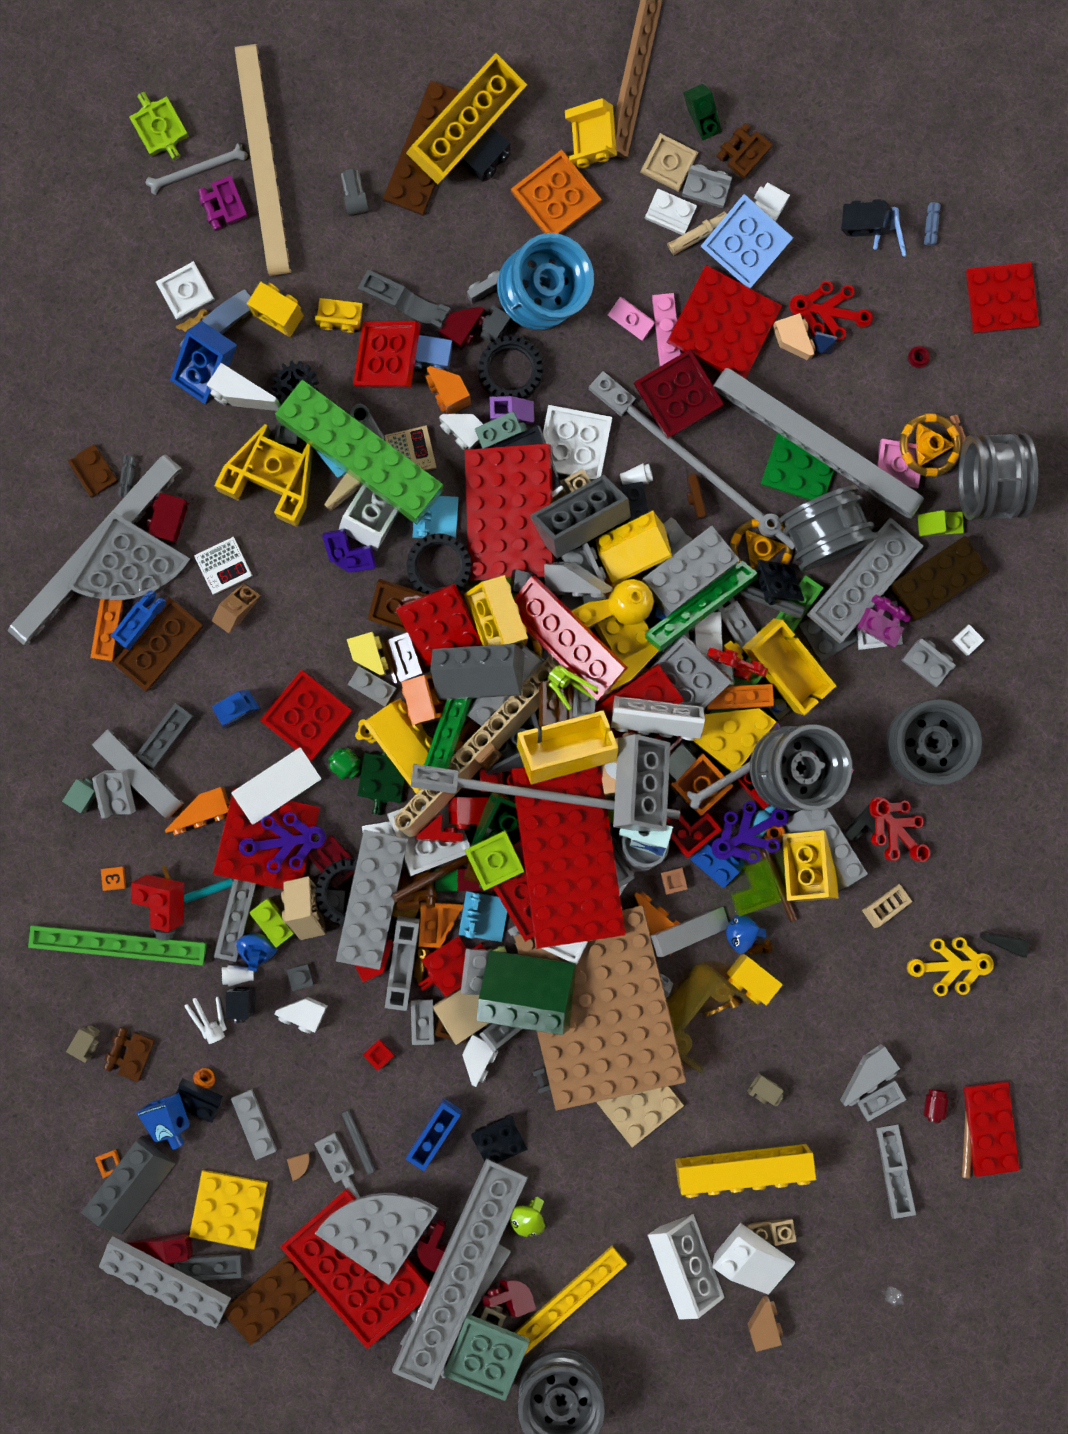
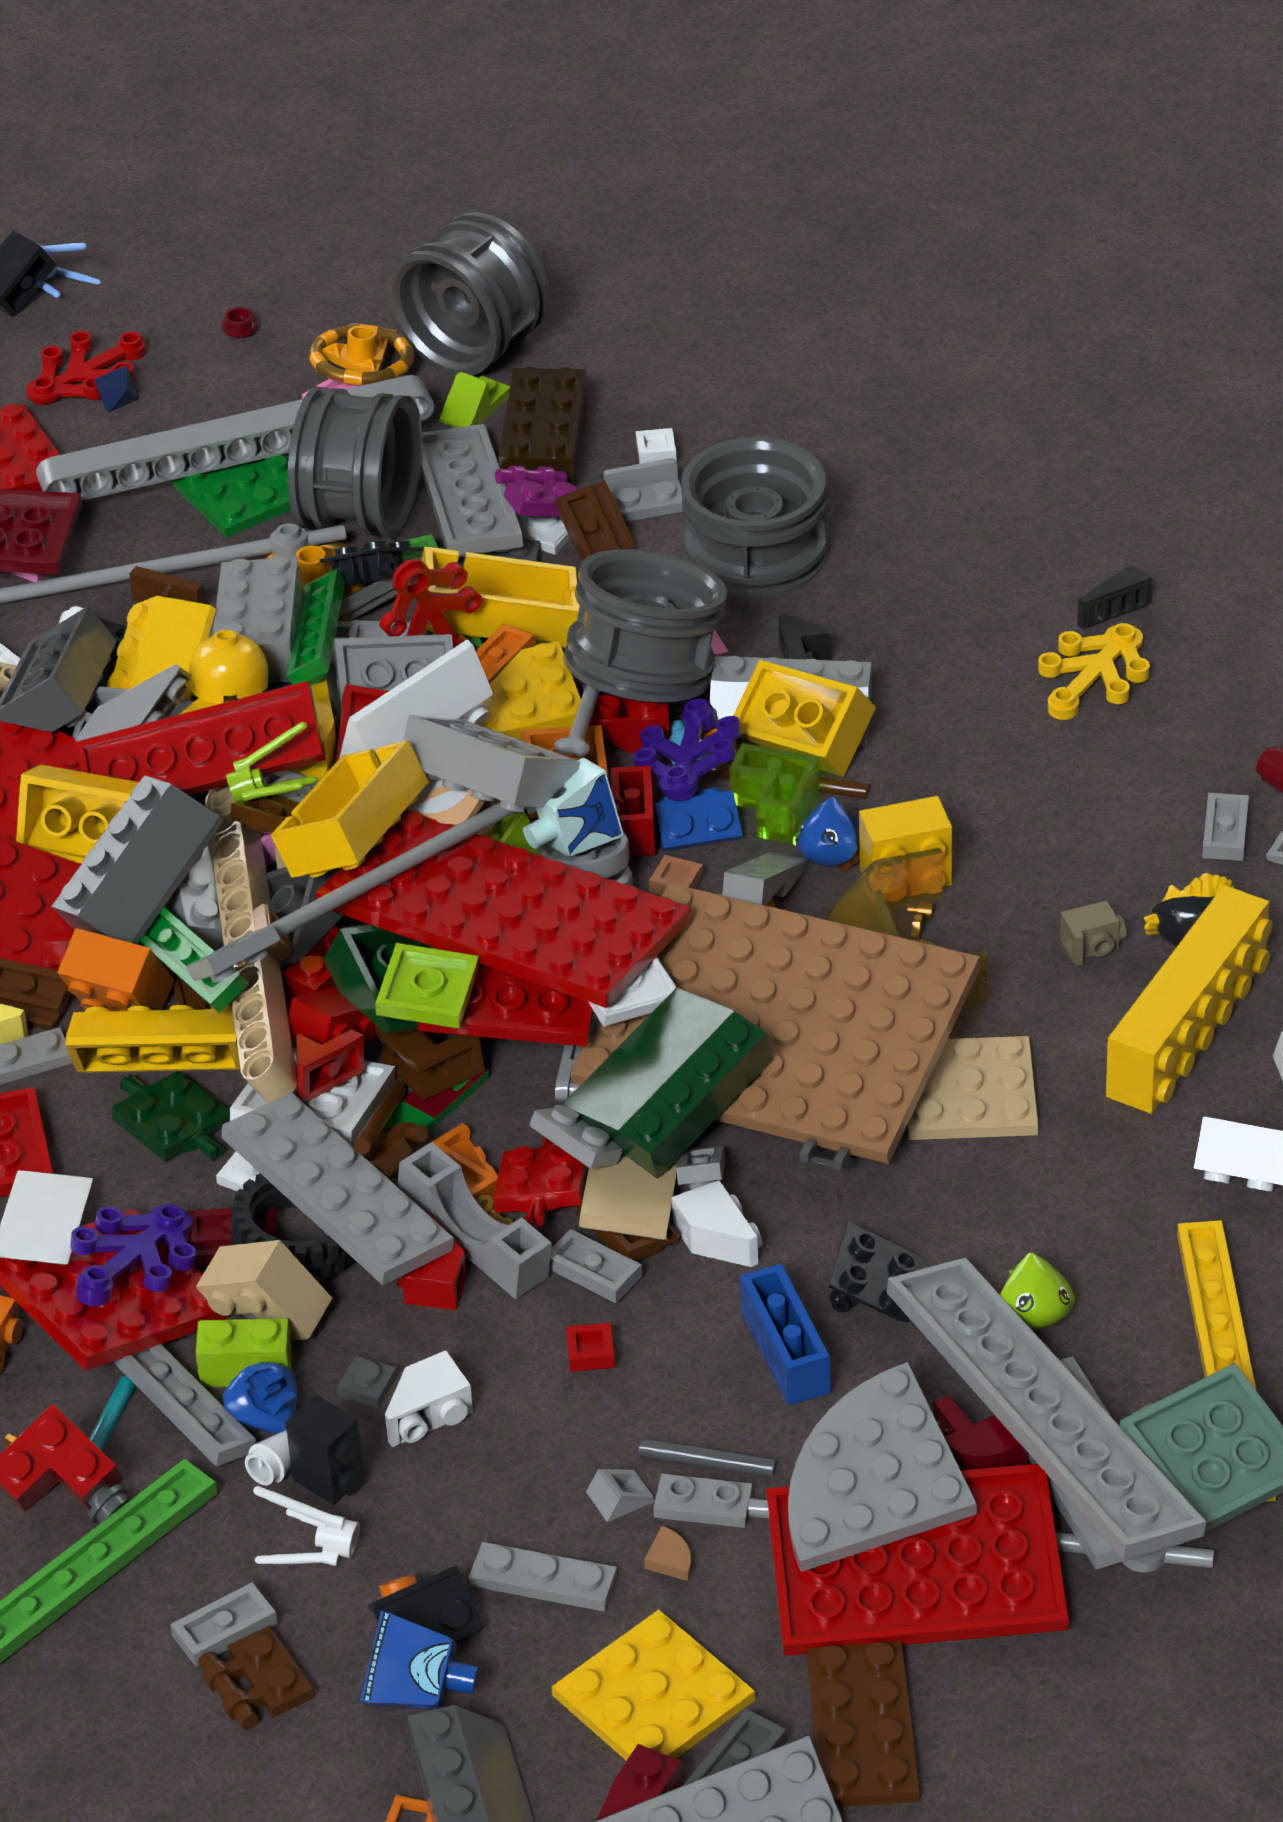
camera: 55 degrees left, 45 degrees down
(84, 1043) = (174, 1720): dark tan brick -> none
(142, 1023) = (223, 1622): none -> light grey plate
(316, 1121) = (618, 1492): none -> light grey slope
(344, 764) = (101, 1142): green head -> none
(361, 734) = (83, 1094): yellow plate -> none
(483, 917) = (499, 1109): medium azure hinge -> none
(514, 1294) = (1145, 1377): dark red brick -> none
(793, 336) = (77, 408): light nougat slope -> none
(807, 1131) = (1182, 908): none -> hair
(871, 1071) = (1169, 813): light grey slope -> none
(873, 917) = (943, 697): tan slope -> none
(882, 662) = (593, 520): none -> reddish brown plate
(896, 830) = (844, 613): red plant -> none
(932, 224) = (94, 240): sand blue axle -> none
(1002, 298) = (256, 227): red plate -> none

